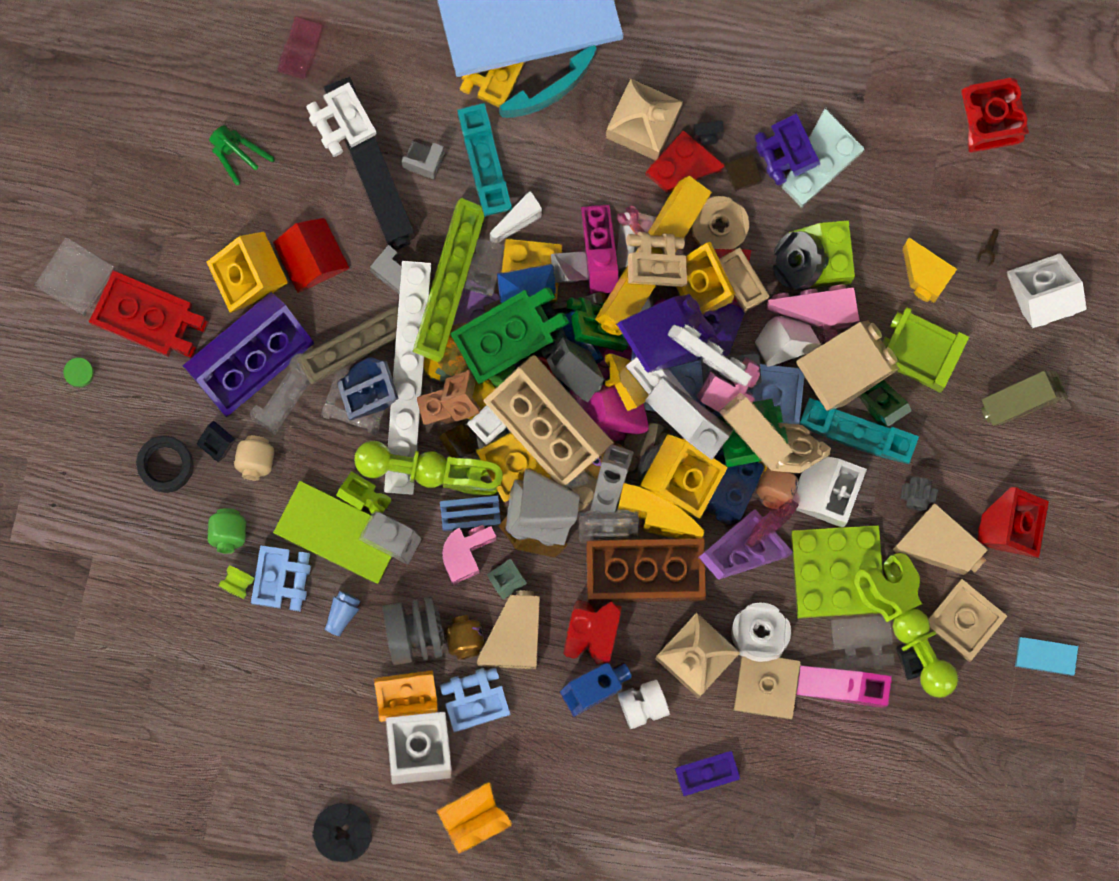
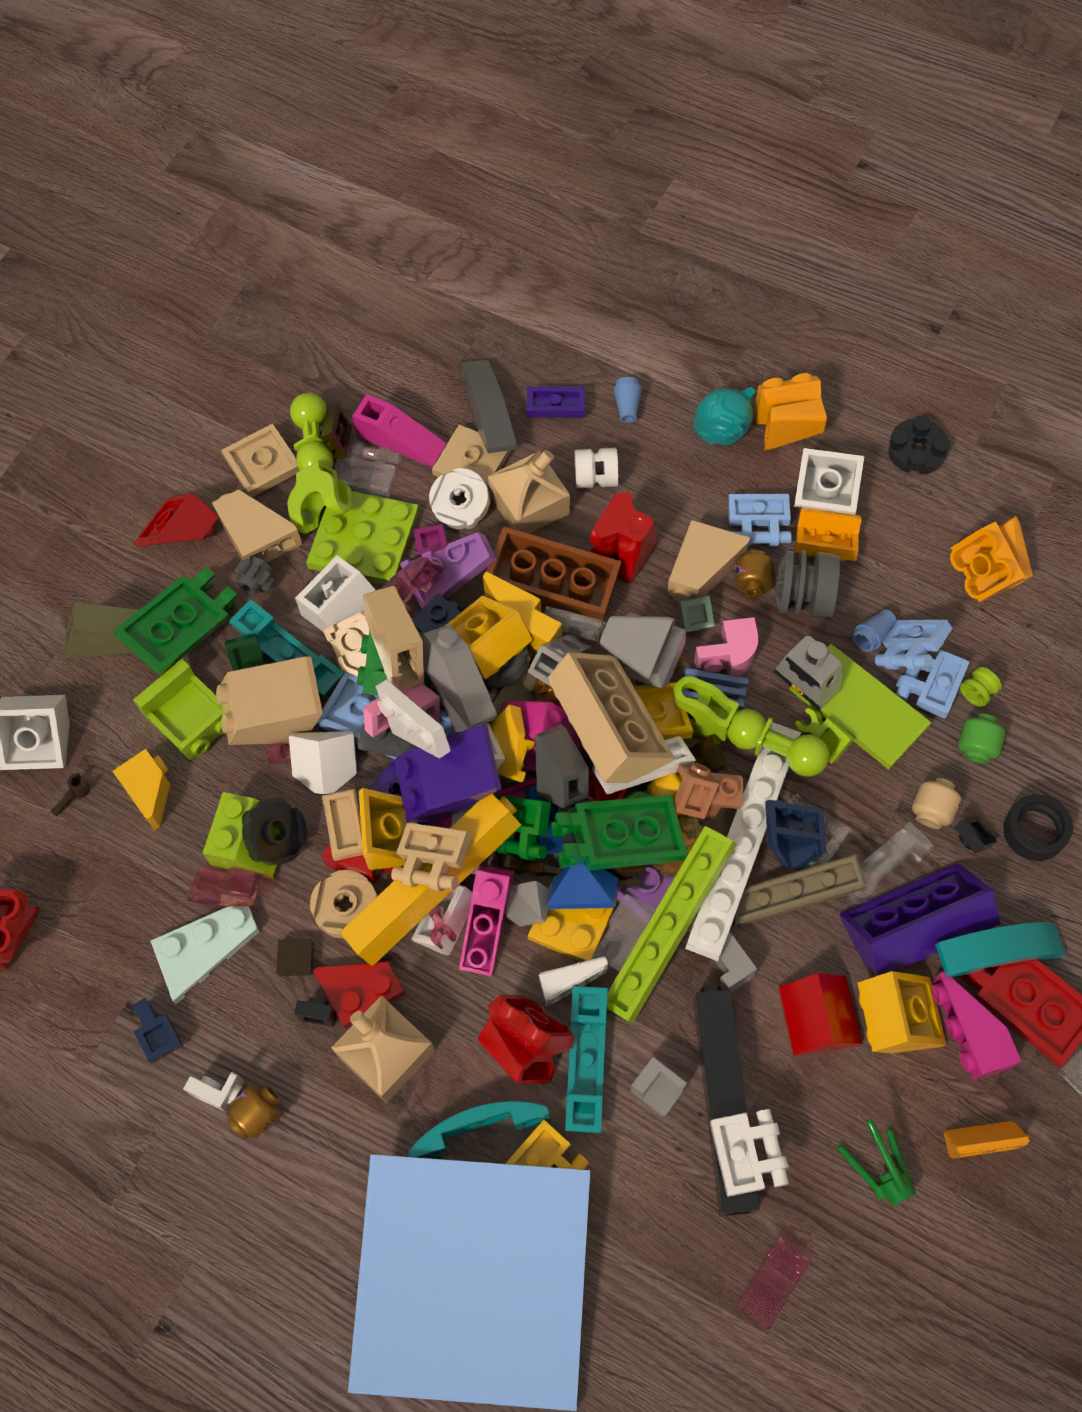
camera: 155 degrees left, 15 degrees down
(164, 195) = (984, 1139): none -> light orange slope
(176, 342) = (1000, 947): none -> teal slope
(181, 272) = (981, 1037): none -> dark pink slope
(248, 709) = (992, 559): none -> light orange piece
(304, 609) = (917, 639): none -> light blue plate
(536, 157) = (524, 1039): none -> red piece
(536, 800) = (724, 415): none -> teal helmet
(586, 692) = (647, 487): blue torso -> none
(638, 800) = (627, 396): none -> medium blue cone
(726, 46) = (254, 1111): none -> pearl gold head
(764, 48) = (209, 1090): none -> white bracket
(770, 744) = (488, 406): none -> dark grey slope
(771, 581) = (430, 539): none -> magenta plate
(795, 146) = (224, 962): dark purple plate -> none
(822, 208) = (222, 889): none -> clear pink slope
(823, 309) = (266, 777): bright pink slope -> none
(825, 79) = (157, 1034): none -> dark blue plate
(903, 664) = (337, 435): none -> dark brown tile
(965, 421) = (176, 621): none -> green tile
(1046, 656) = (201, 415): medium azure tile -> none

